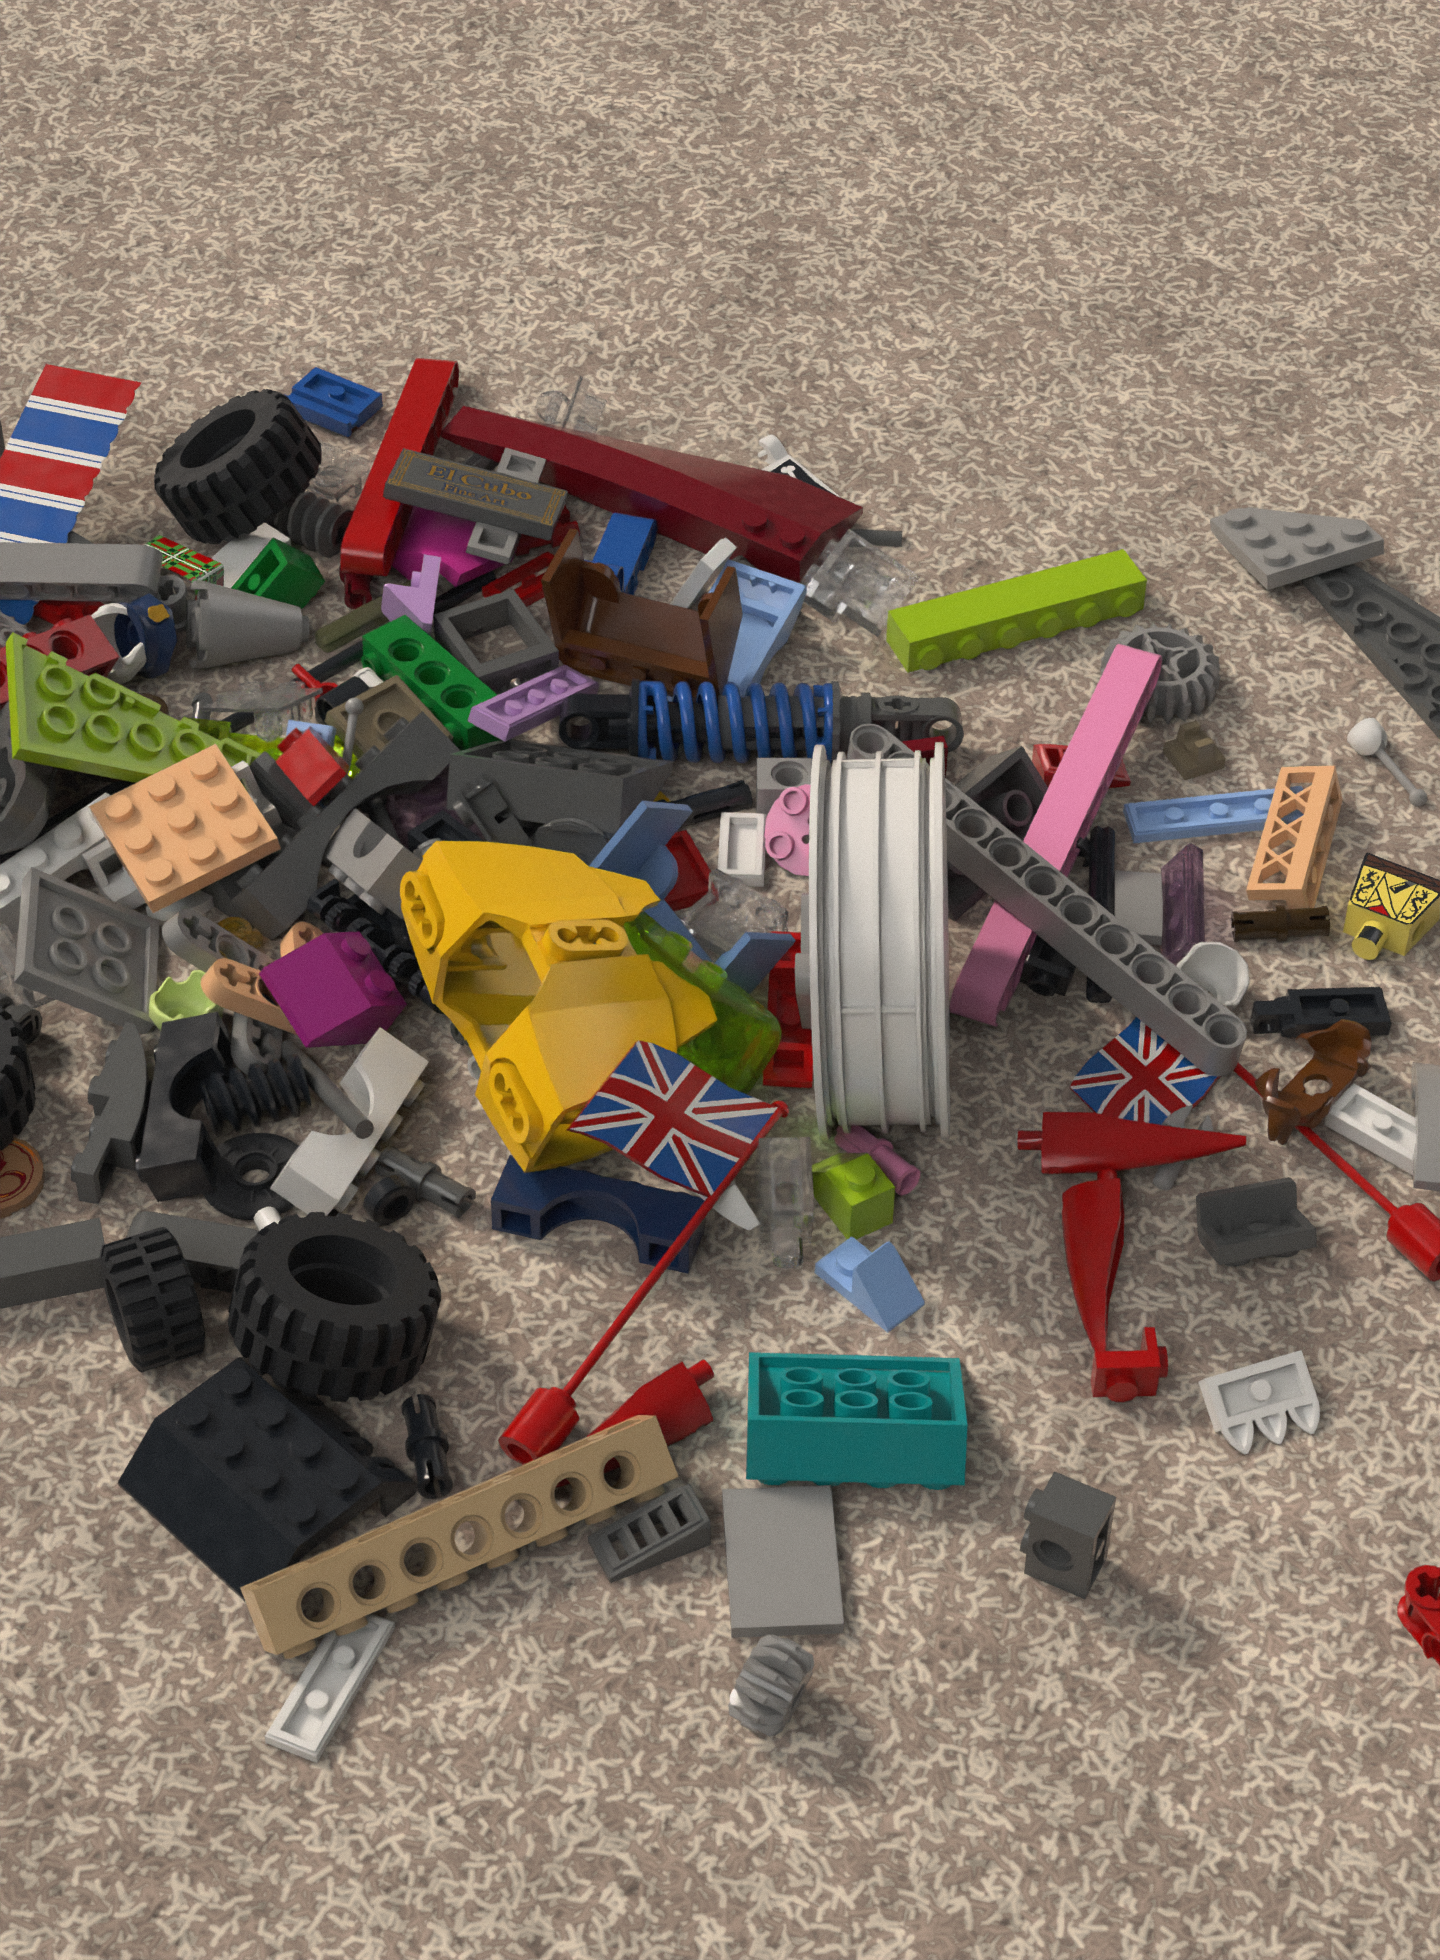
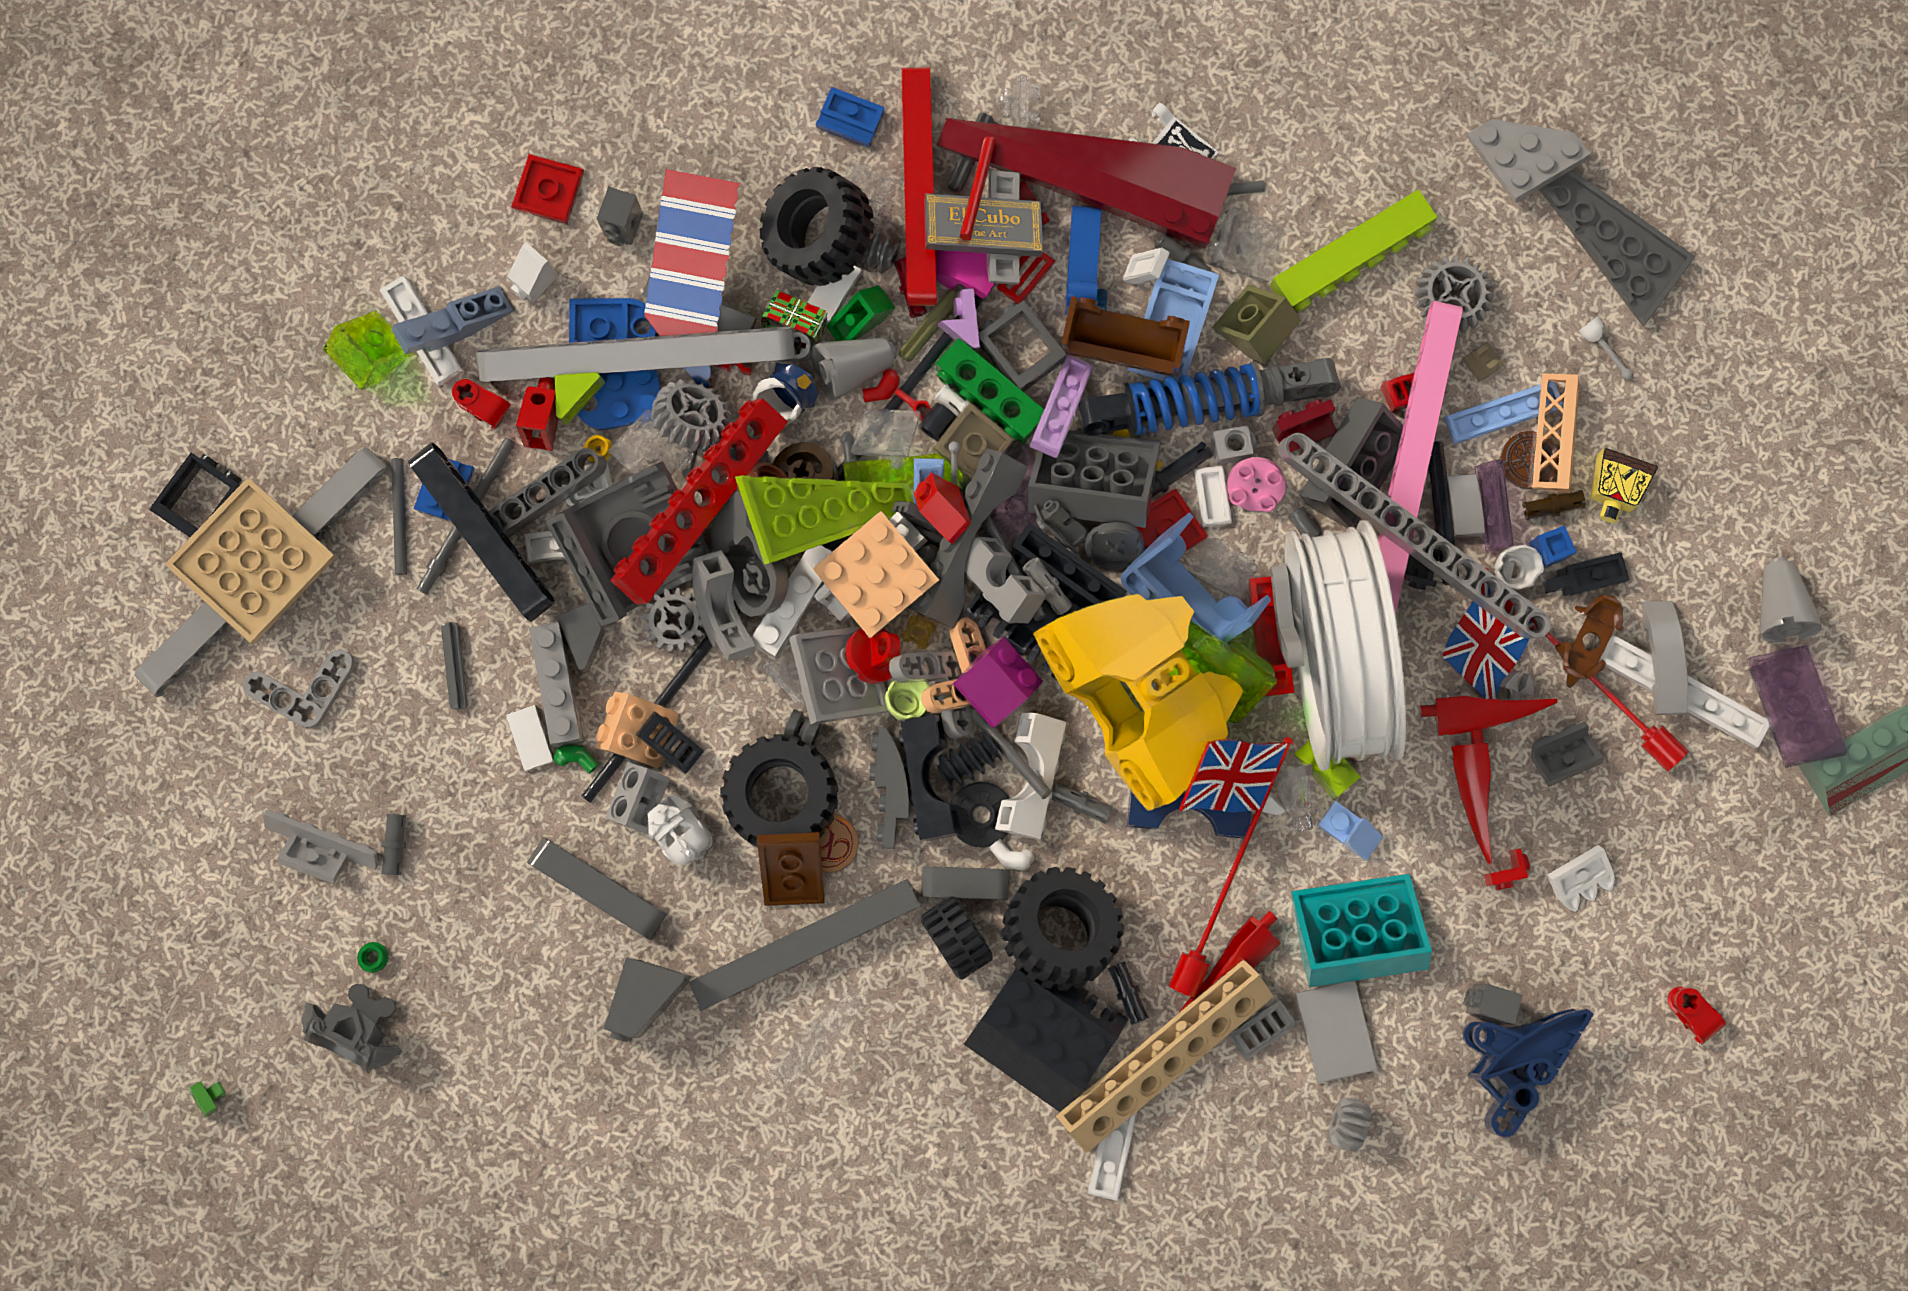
camera: 10 degrees left, 35 degrees up
(140, 943) = (872, 655): none -> red tile
(278, 670) = (885, 388): none -> red arm
(389, 1200) = (1066, 824): black tile -> none
(478, 454) = (977, 188): none -> red bar
(864, 662) = (1257, 323): none -> olive slope
(1103, 1612) = (1537, 1045): none -> dark blue piece
(1229, 869) = (1519, 459): none -> reddish brown tile
(1271, 959) = (1554, 546): none -> blue brick

